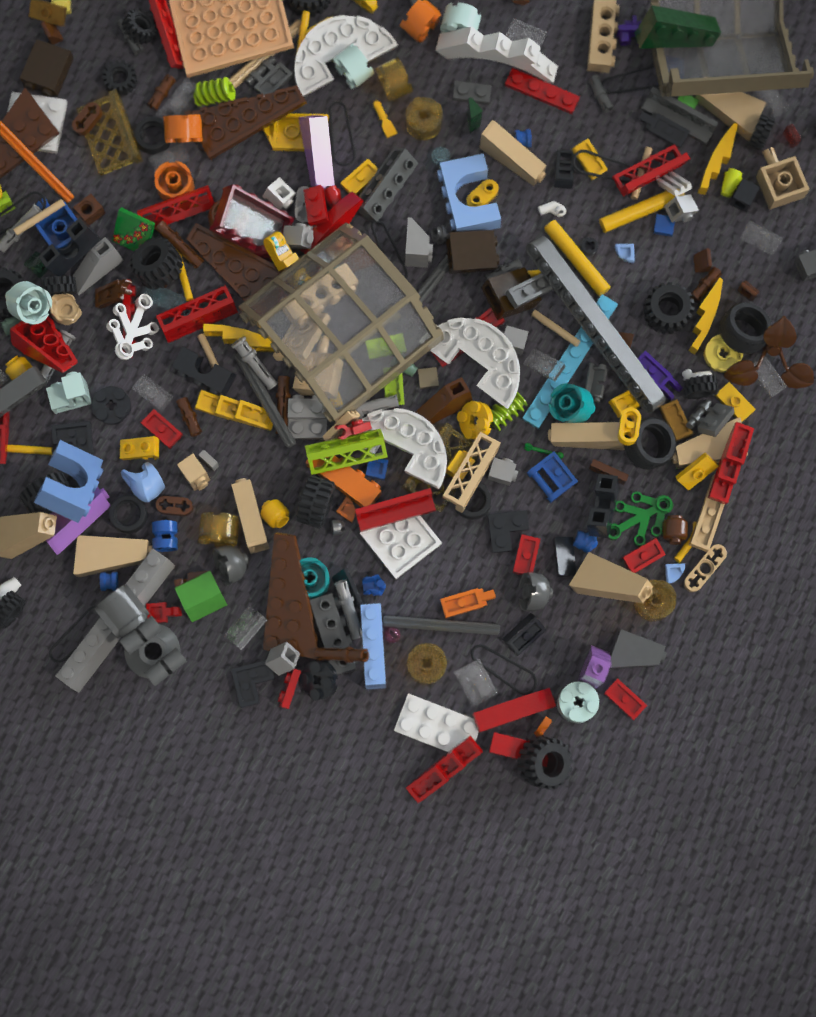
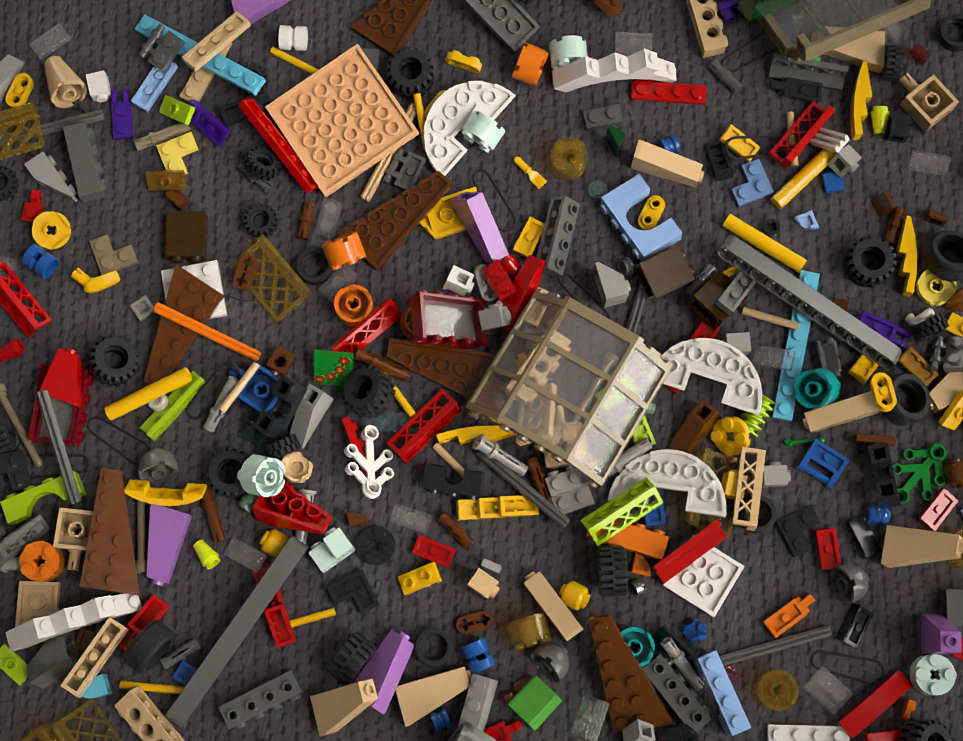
camera: 15 degrees left, 0 degrees up
(65, 500) = (379, 620): medium blue arch -> none
(103, 376) = (357, 520): none -> reddish brown slope
(111, 293) = (336, 436): reddish brown plate -> none
(146, 484) = (441, 613): light blue helmet -> none
(214, 92) = (359, 204): lime piece -> none
(279, 251) = (484, 338): yellow leg -> none
(346, 420) = (607, 486): tan tile -> none
(346, 654) = (704, 711): reddish brown pin -> none
(358, 426) = (623, 485): red plate -> none
(394, 79) = (526, 130): clear yellow brick -> none
(428, 378) = (668, 409): dark tan tile -> none
(553, 208) = (722, 202): white arm -> none
(591, 205) = (757, 186): none -> medium blue plate

